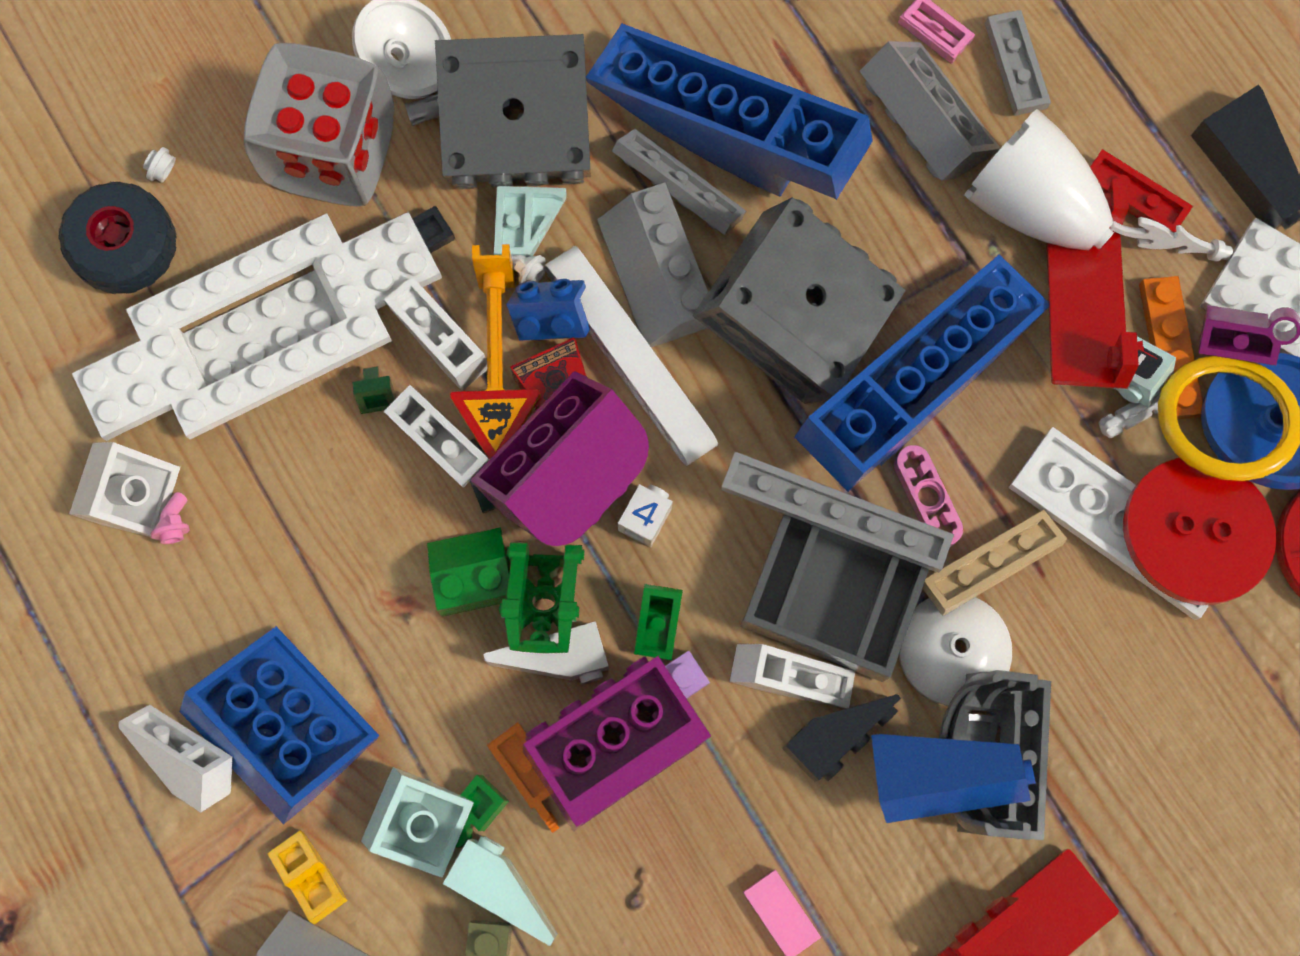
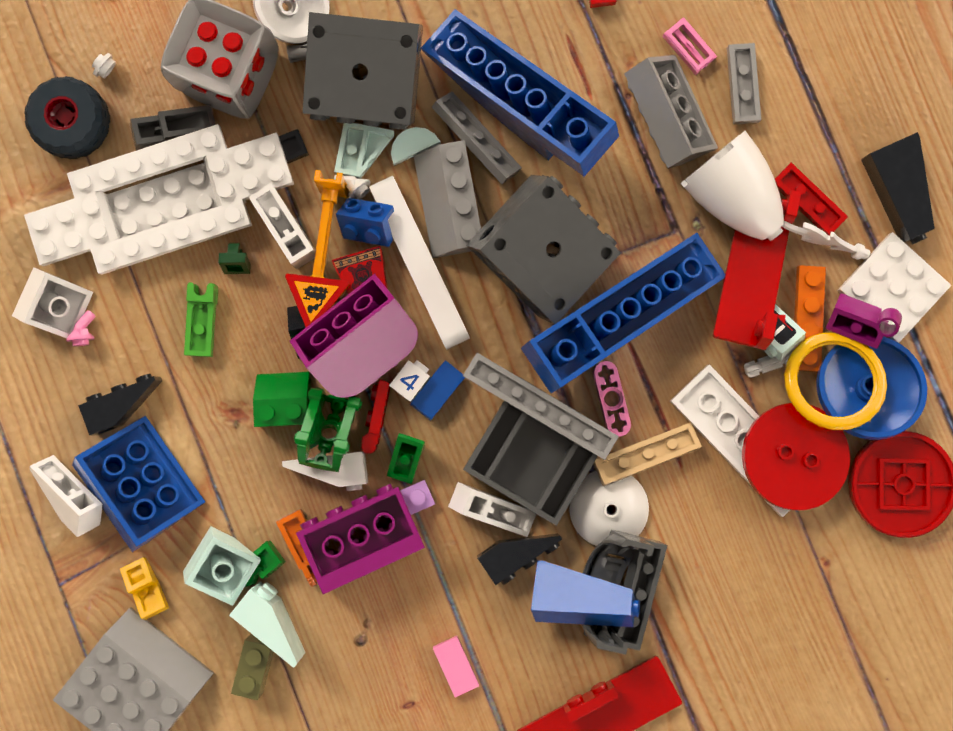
camera: 10 degrees right, 10 degrees up
(231, 622) = (114, 409): none -> black slope
(258, 225) = (170, 125): none -> dark grey slope
(337, 481) = (200, 320): none -> bright green plate
(436, 436) = (272, 302): white slope -> none
(592, 202) = (412, 142): none -> light aqua tile
(605, 575) = (375, 418): none -> red hinge
(685, 523) = (437, 390): none -> blue slope

